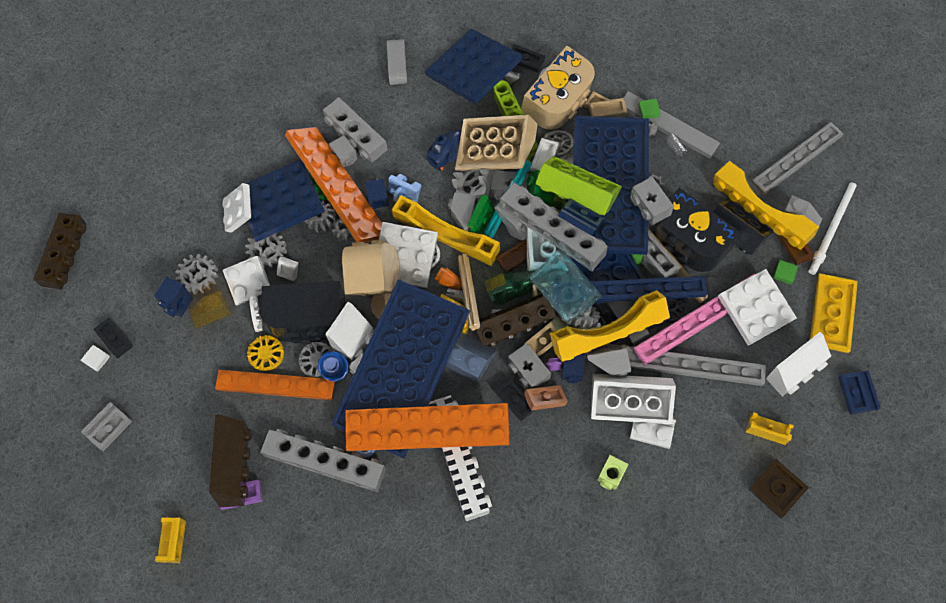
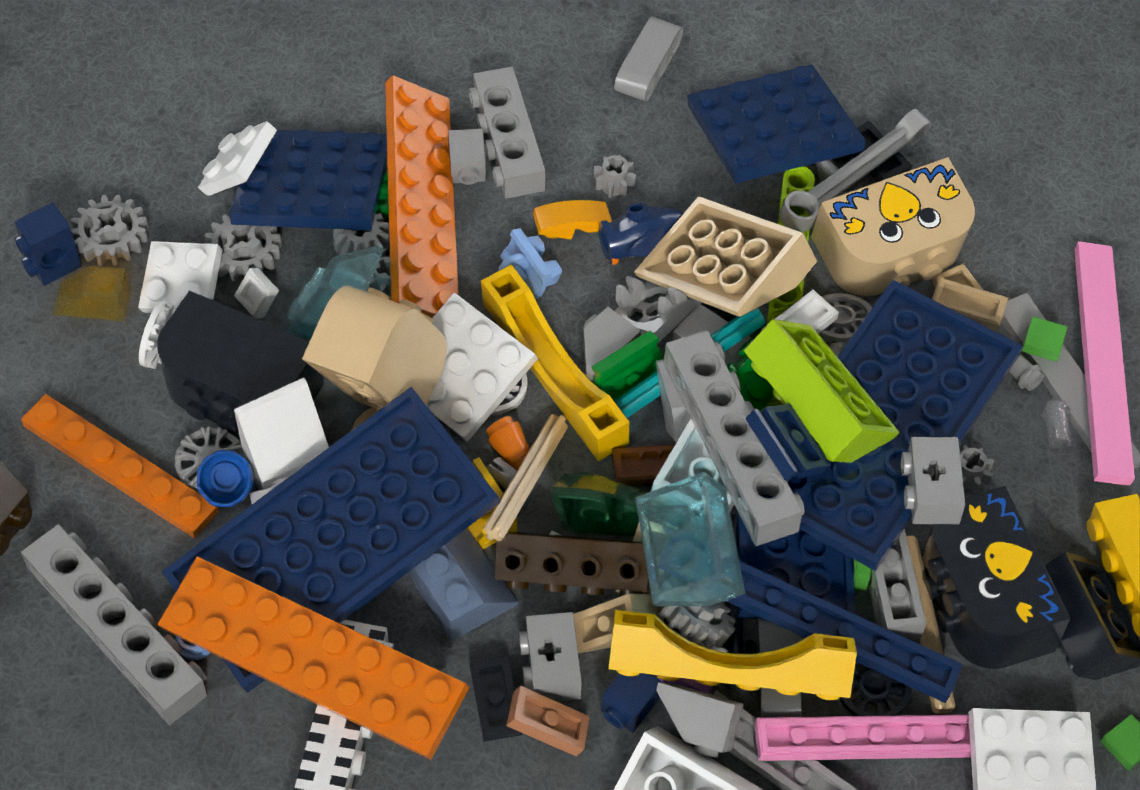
camera: 25 degrees right, 10 degrees down
(265, 353) = (136, 407): yellow wheel -> none
(328, 258) = (343, 270): none -> clear light blue slope
(377, 193) = (478, 248): dark blue brick -> none
(406, 159) = (563, 217): none -> light orange slope
(416, 127) = (614, 175): none -> light grey gear
(523, 73) = (906, 133): none -> light grey piece
(554, 364) = (598, 675): medium lavender plate -> none
(679, 107) = (1103, 365): none -> bright pink tile

